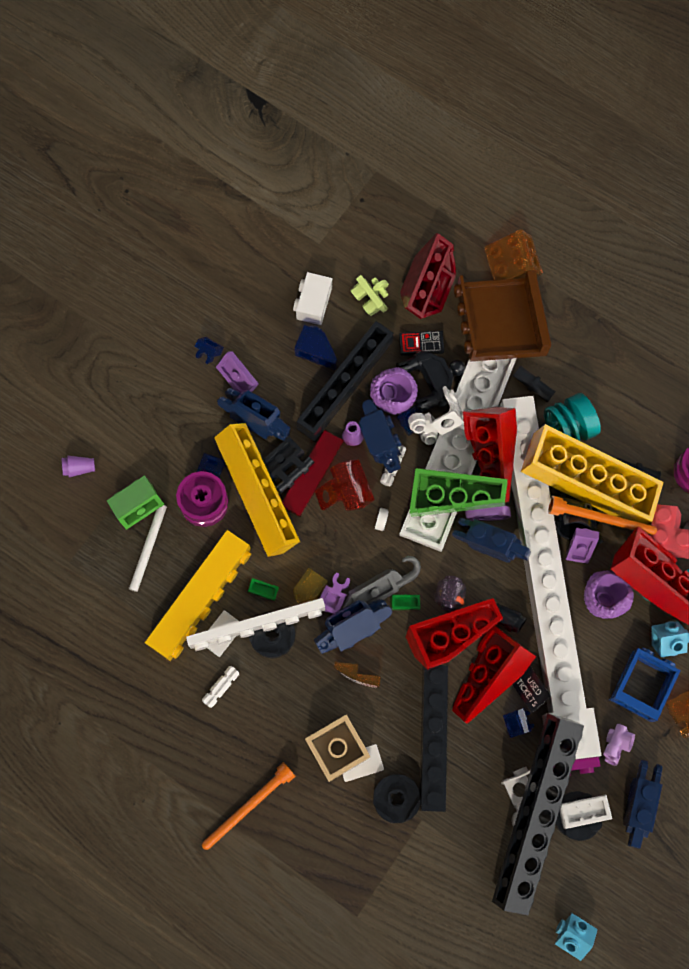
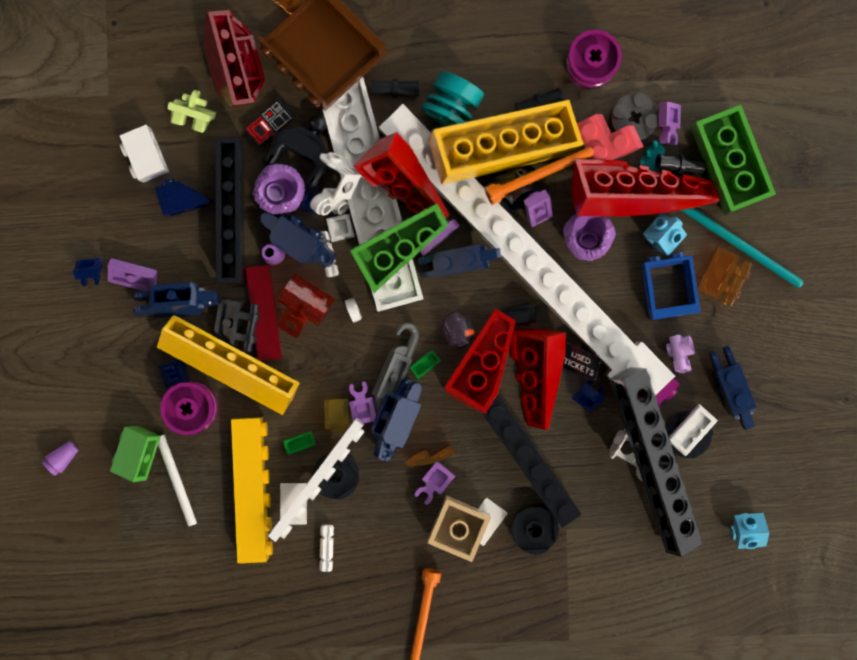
camera: 35 degrees left, 15 degrees up
(348, 697) = (437, 480): none -> medium lavender plate
(417, 454) = (340, 227): none -> white tile

